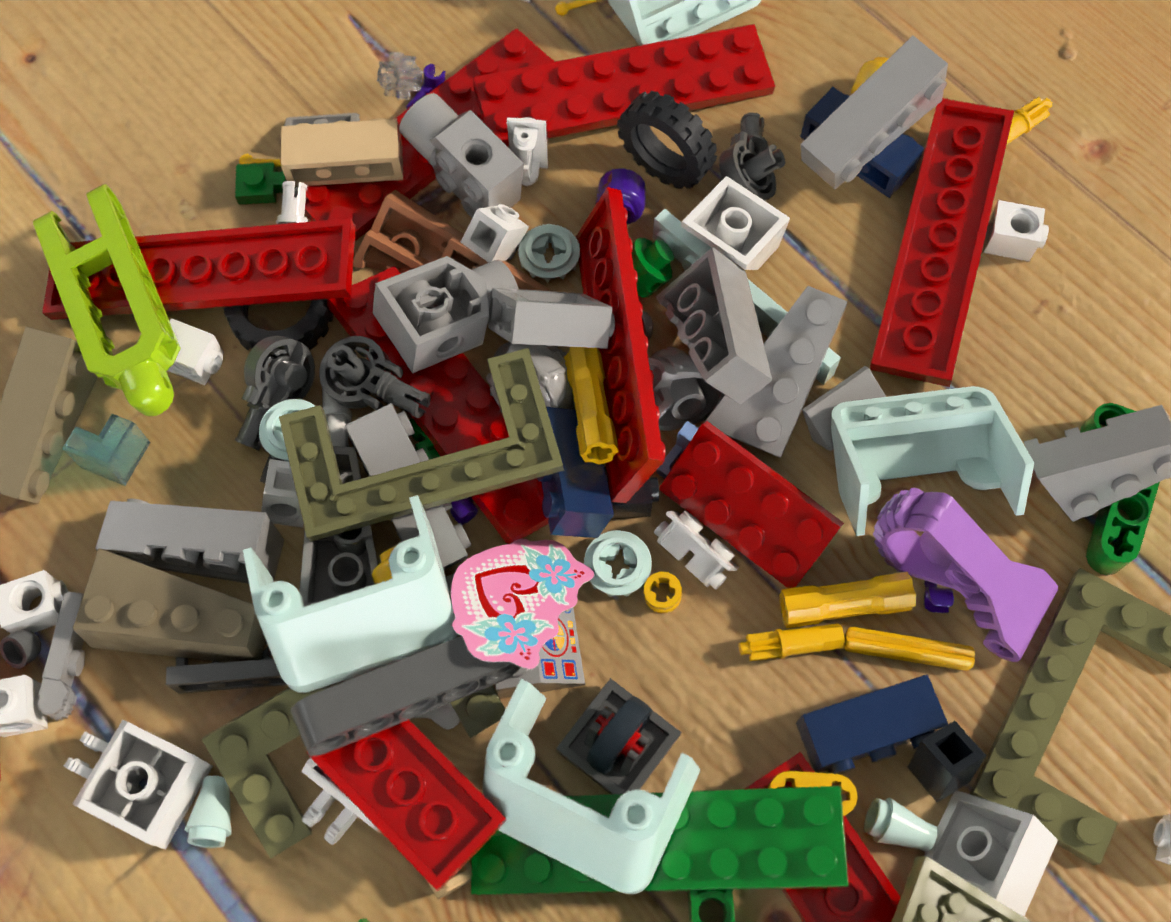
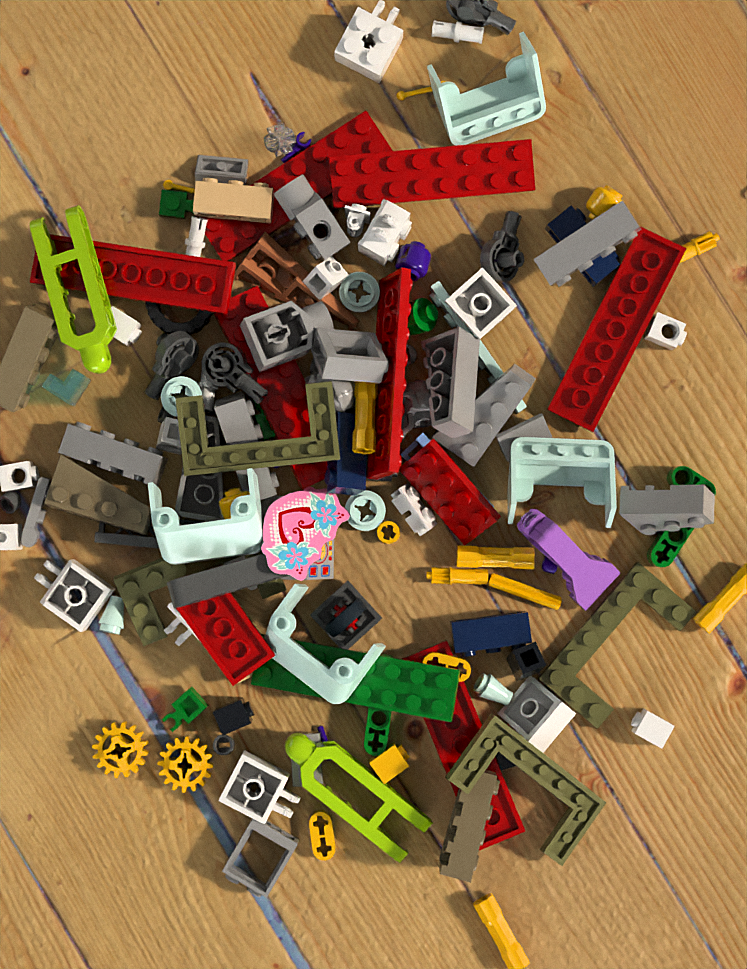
camera: 10 degrees right, 20 degrees up
(572, 160) = (384, 233): none -> white hinge
(680, 127) = (449, 232): black tyre -> none

